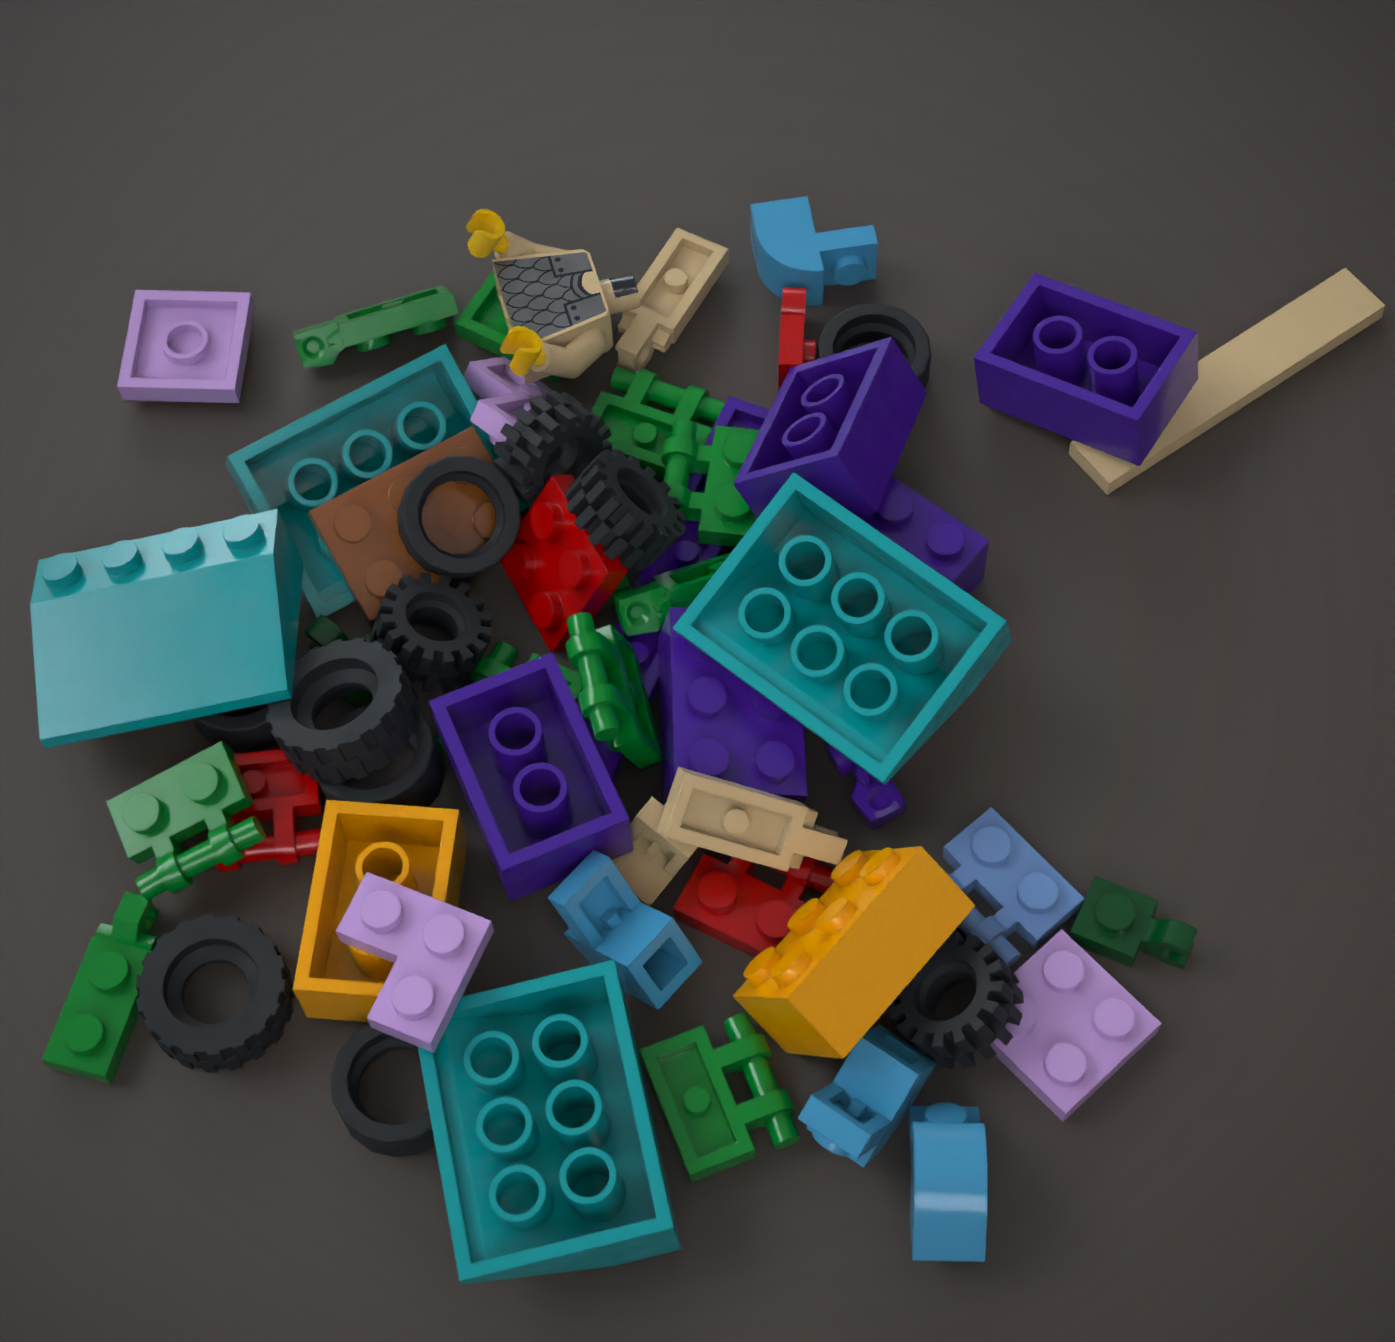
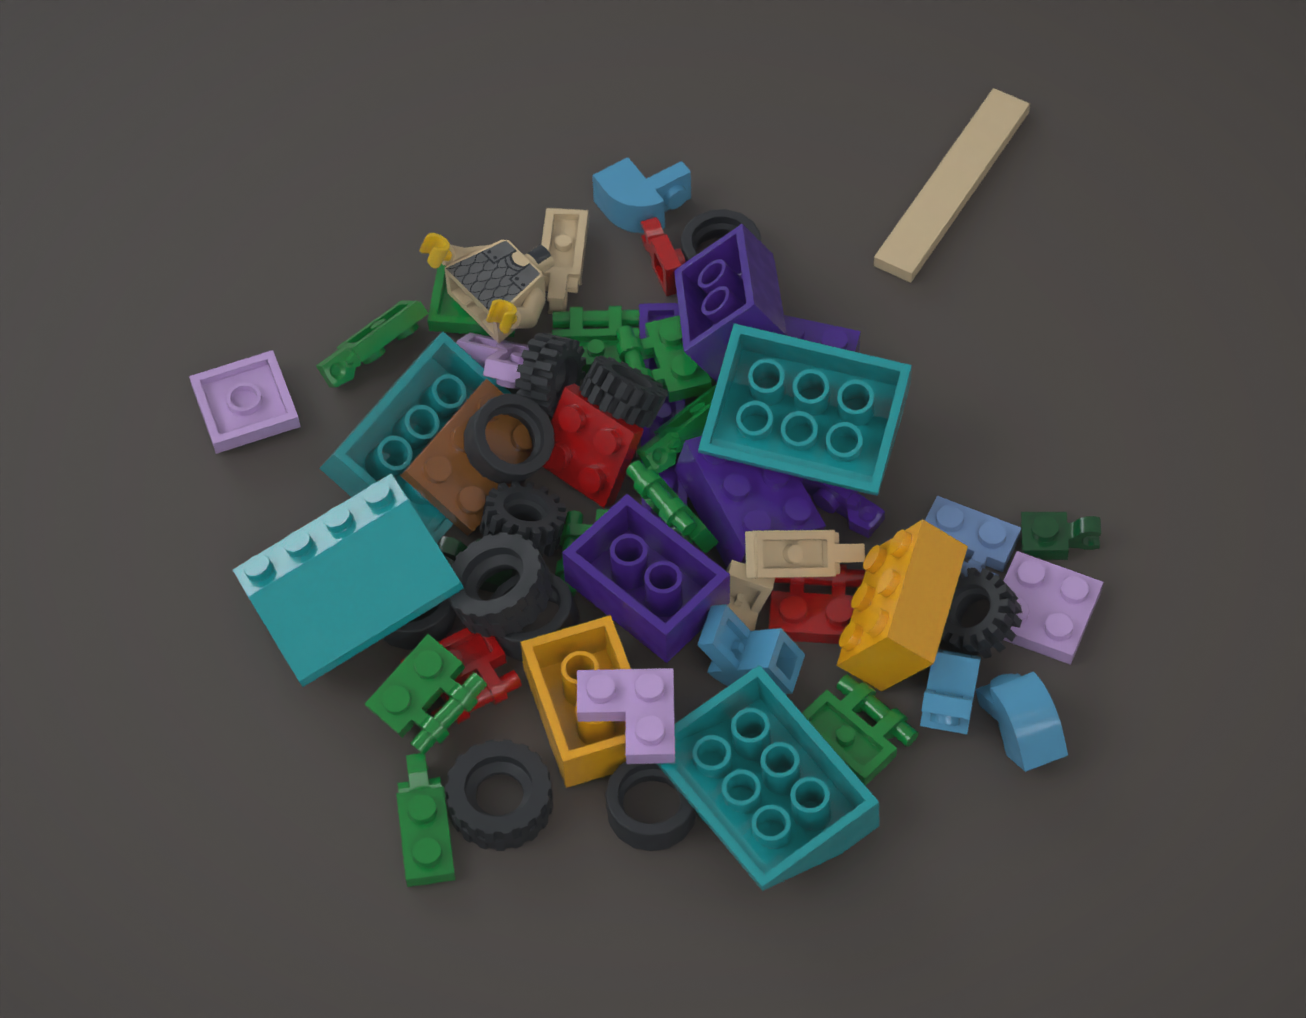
camera: 25 degrees left, 5 degrees down
(1087, 368) = (866, 204): dark purple brick -> none

